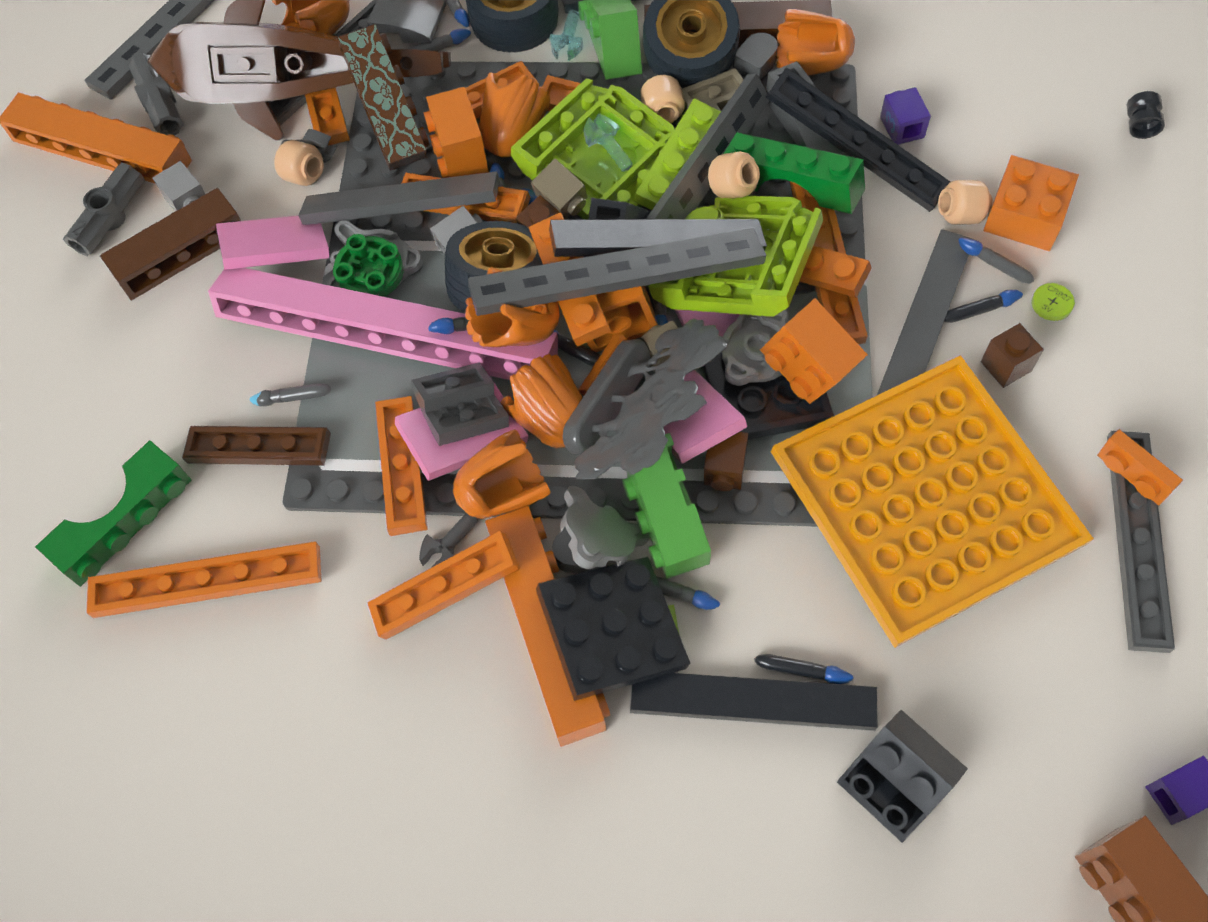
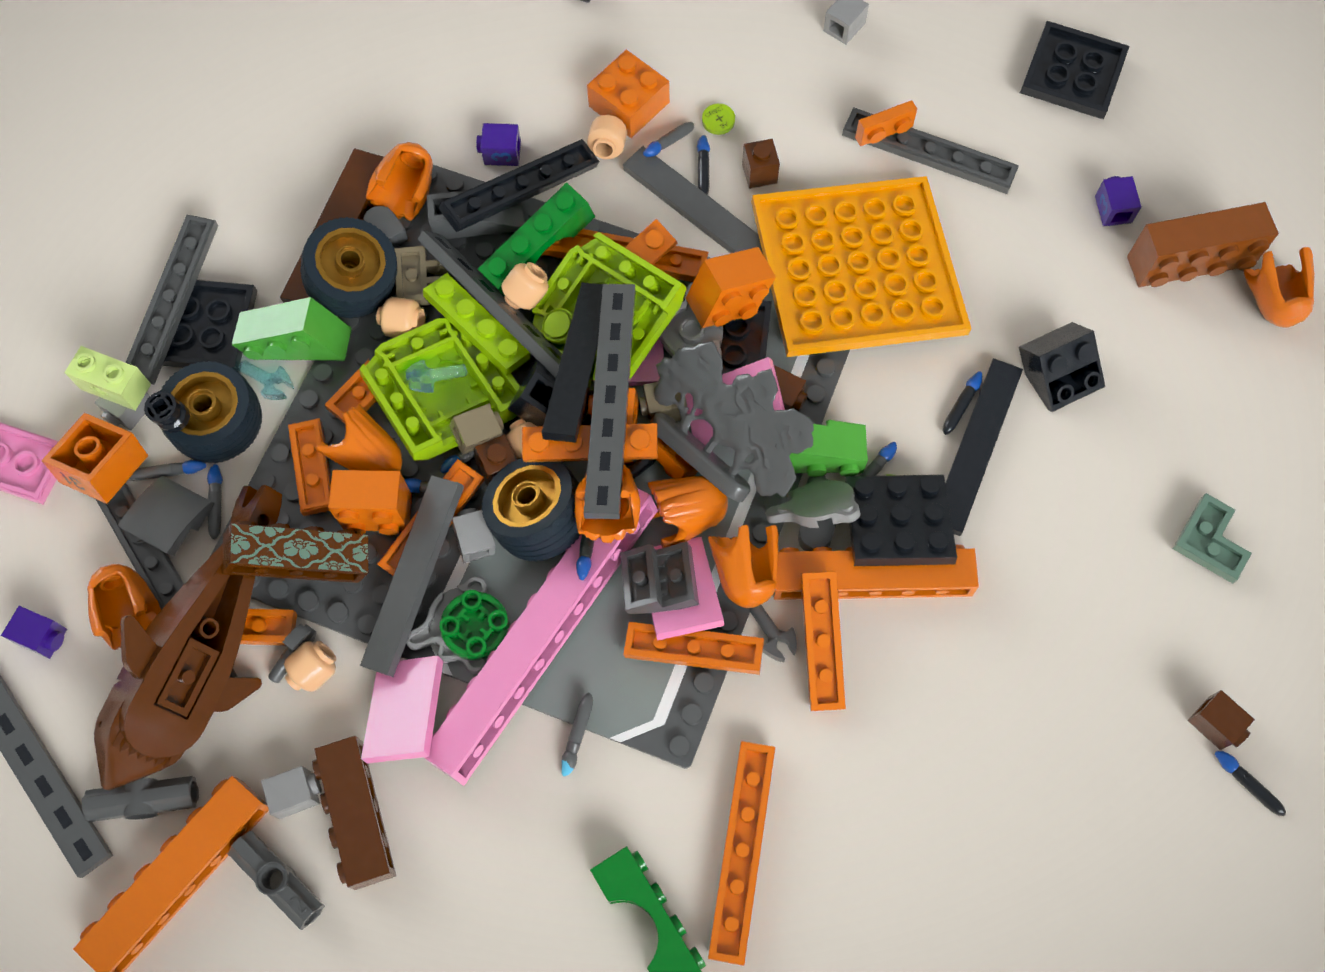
camera: 75 degrees left, 5 degrees up
(257, 445) = (619, 778): reddish brown tile -> none

